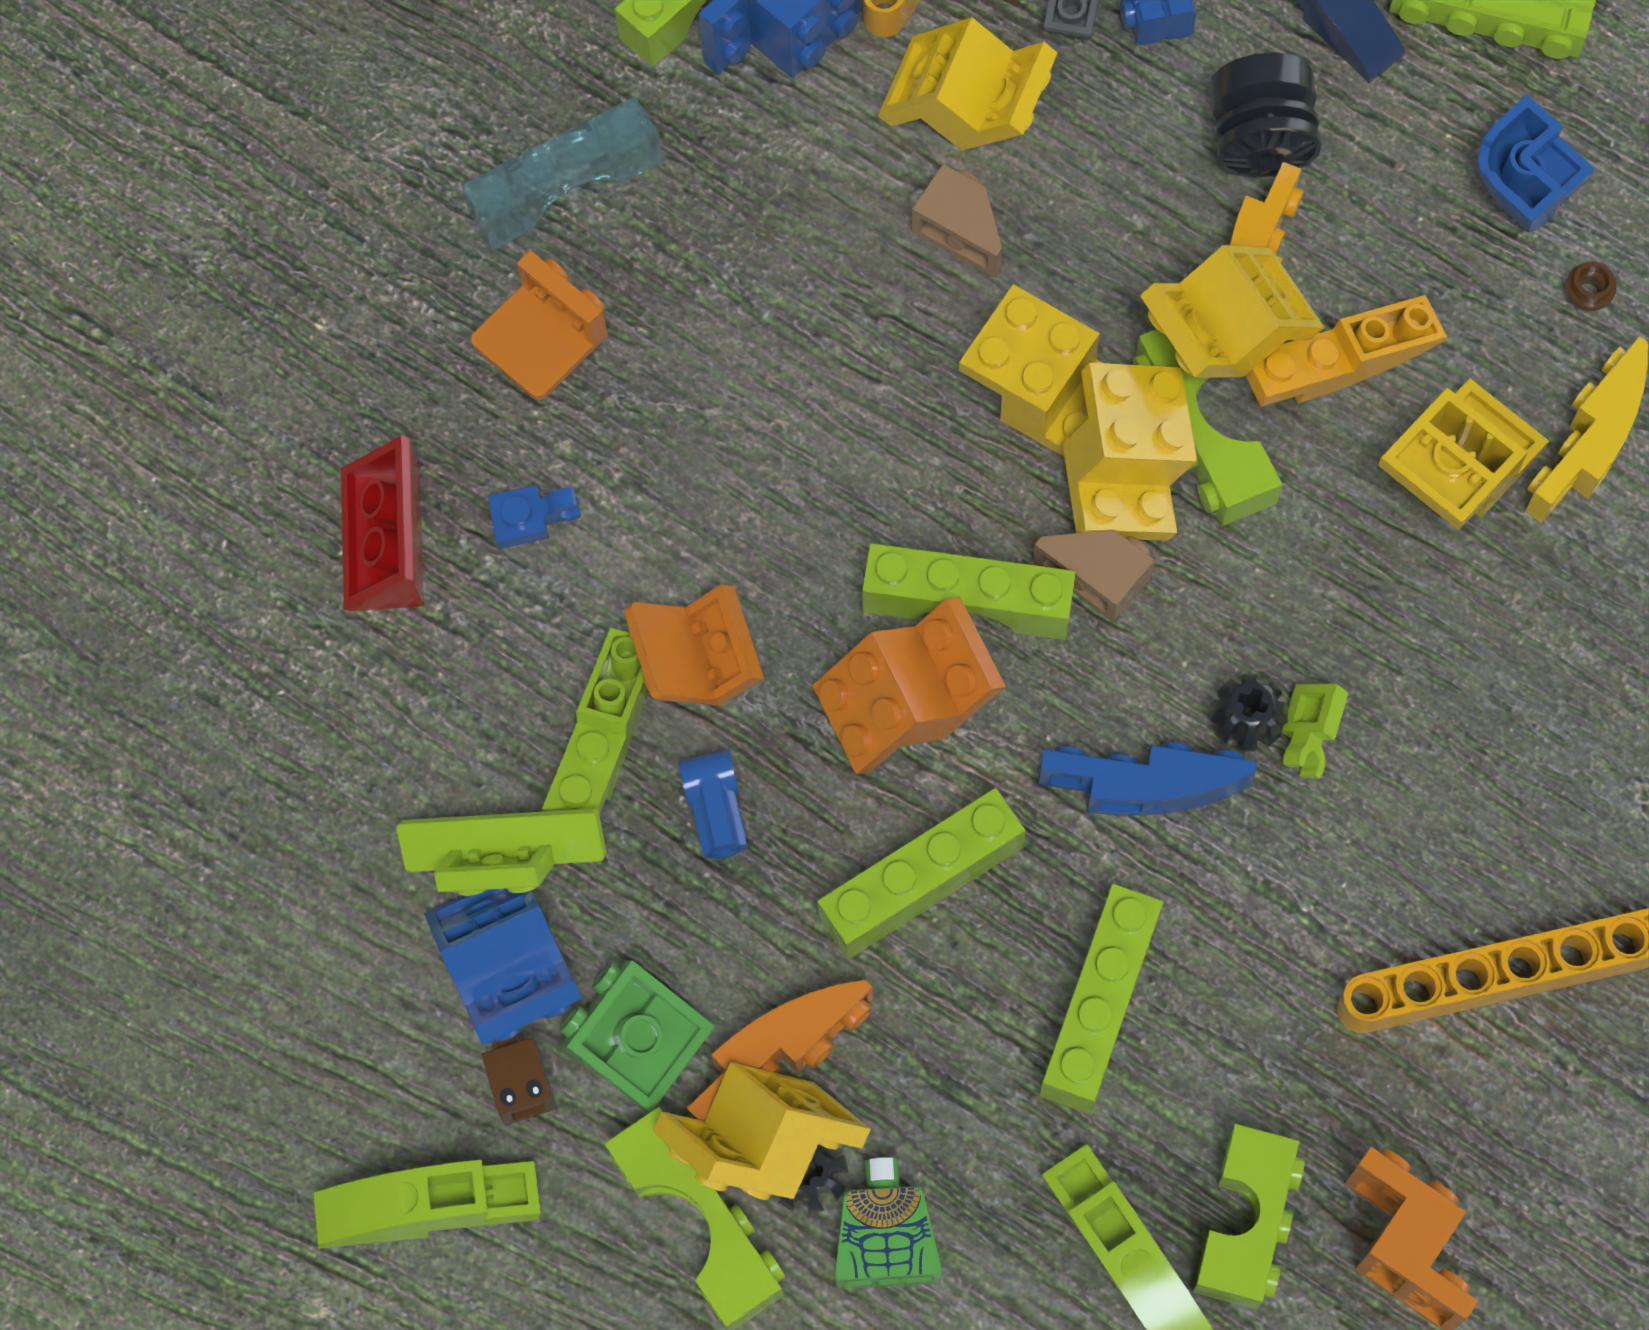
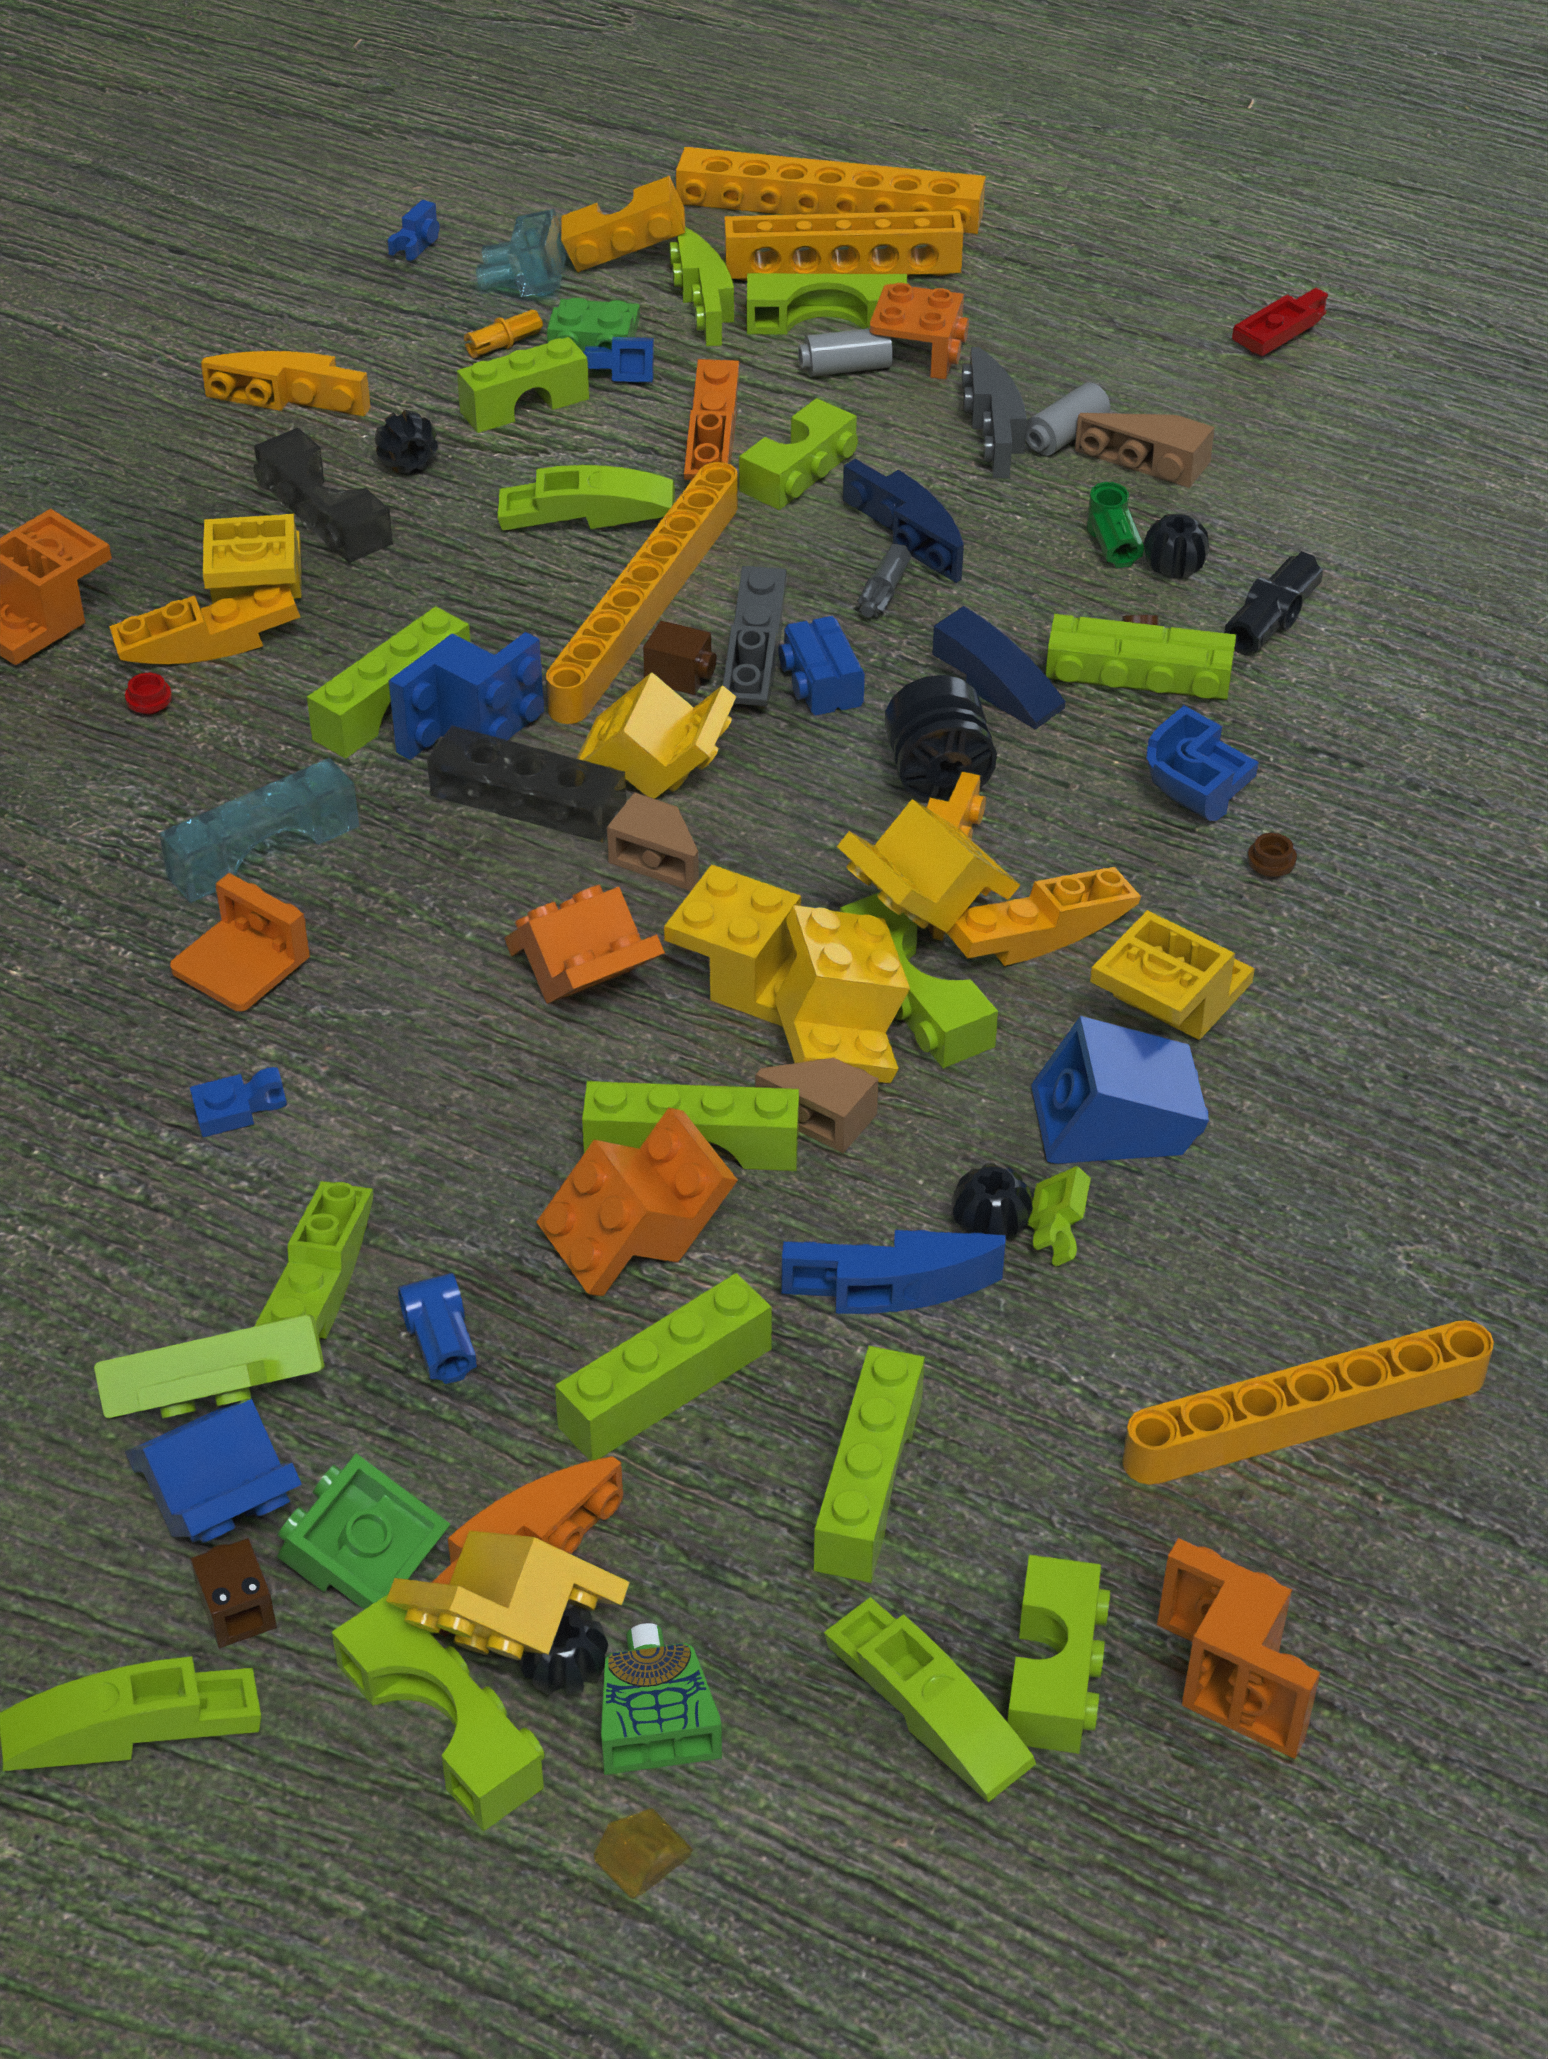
camera: 10 degrees left, 25 degrees down
(382, 529) = (79, 1121): red slope -> none
(695, 650) = (421, 1197): orange bracket -> none
(848, 151) = (526, 783): none -> clear smoke brick
(877, 361) = (581, 942): none -> orange bracket
(1389, 593) = (1117, 1096): none -> blue slope
(1599, 431) = (1299, 964): yellow slope -> none

